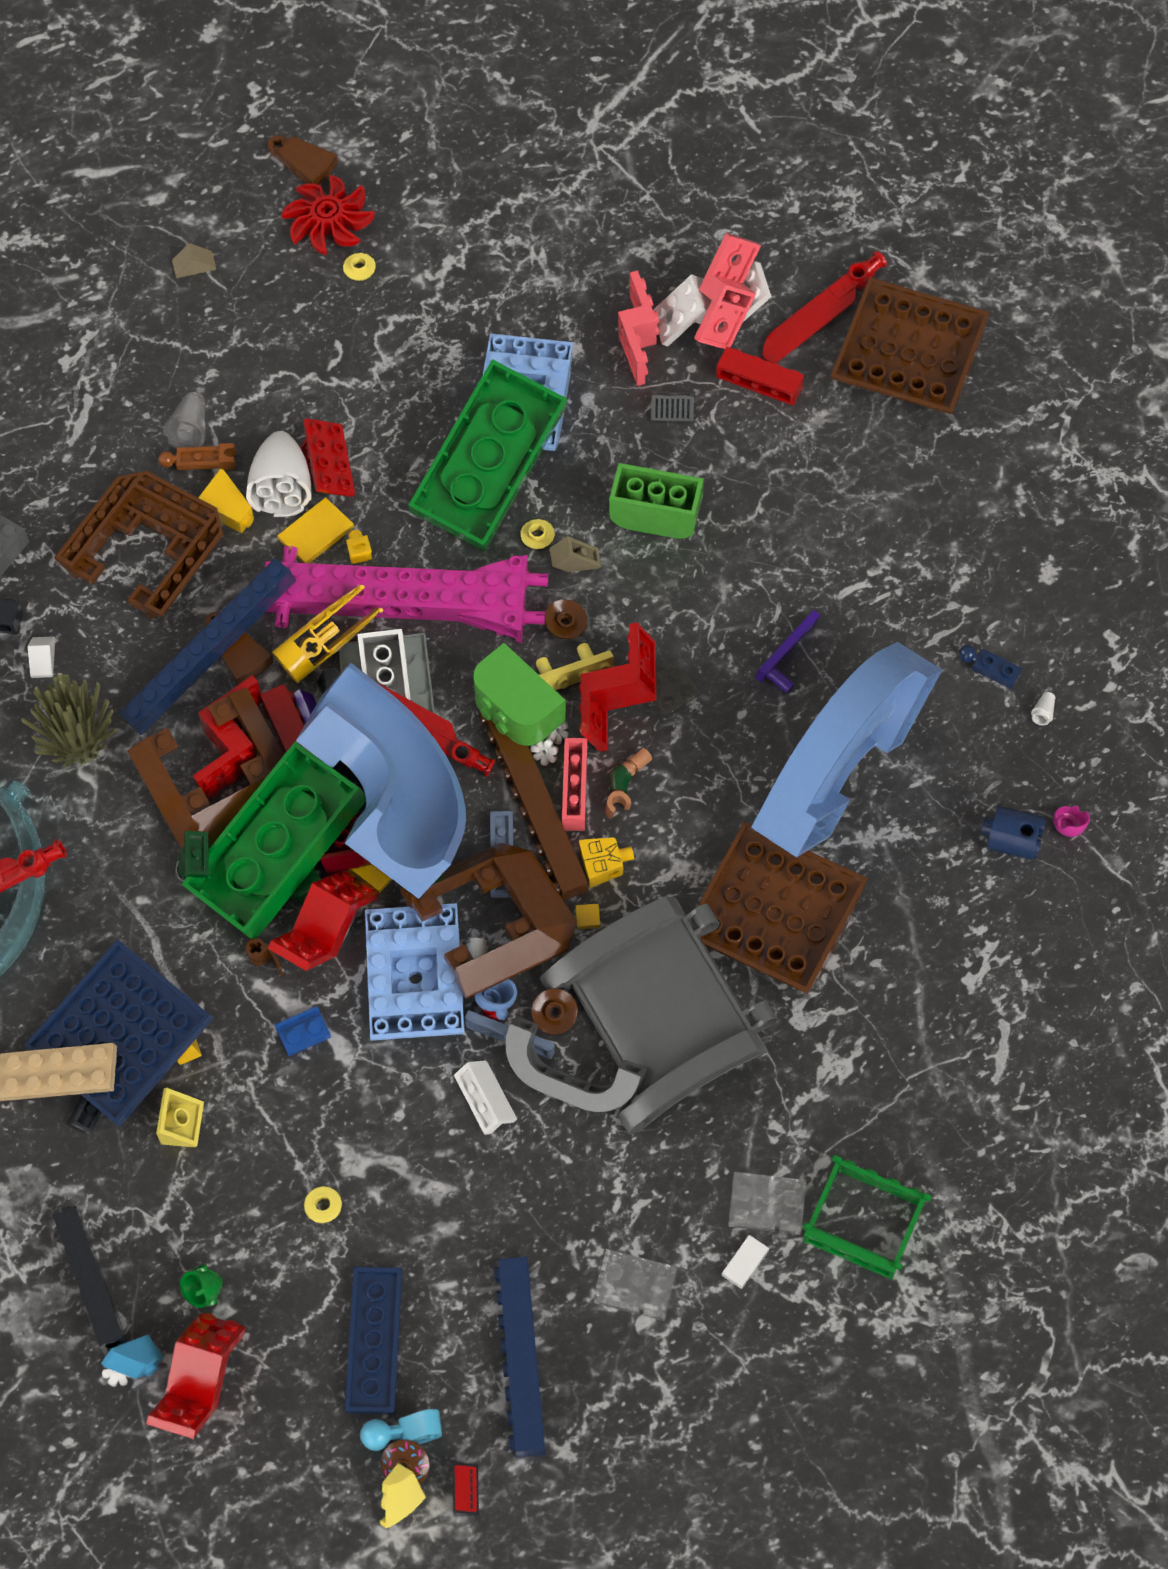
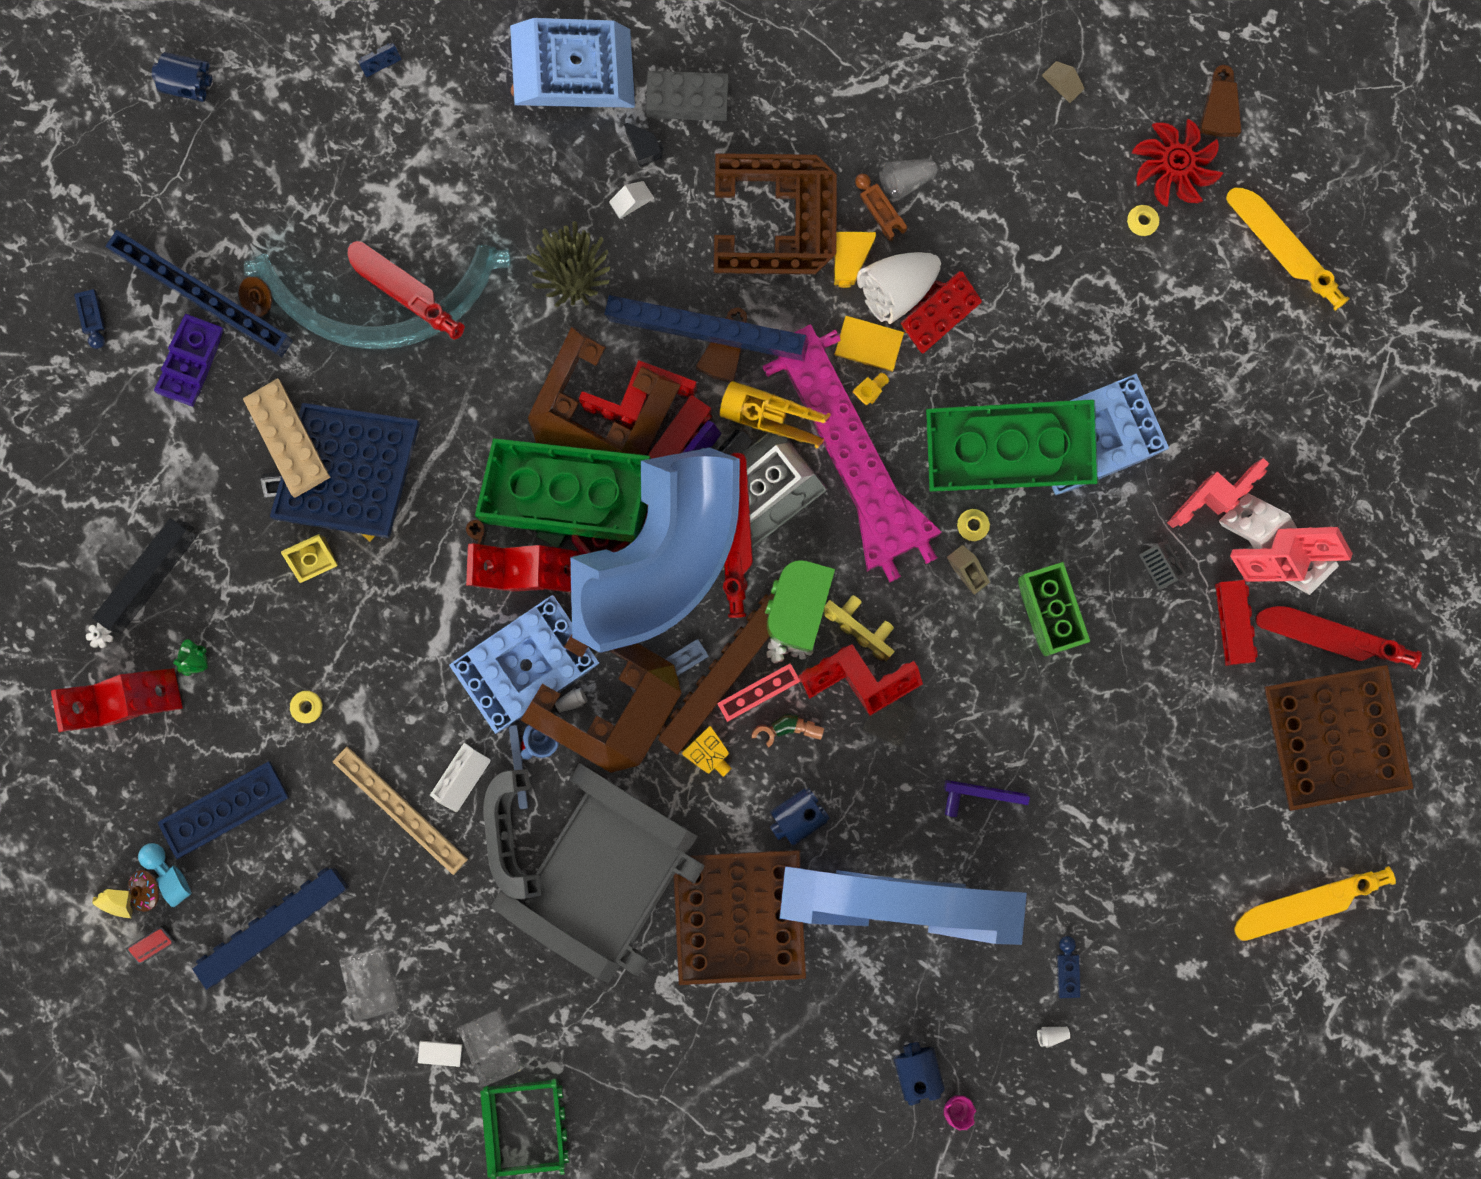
camera: 55 degrees right, 20 degrees up
(134, 1358) = (108, 645): dark azure slope -> none
(193, 857) = (517, 435): dark green piece -> none
(302, 1031) = (435, 605): blue plate -> none
(456, 174) = (1284, 244): none -> yellow piece
(481, 1171) = (400, 810): none -> tan tile
(559, 999) = (549, 794): reddish brown dish -> none
(570, 612) = (914, 601): reddish brown dish -> none
(587, 916) = (654, 768): yellow tile -> none
(712, 809) = (792, 820): none -> dark blue cylinder
(1045, 448) = (1308, 905): none -> yellow piece

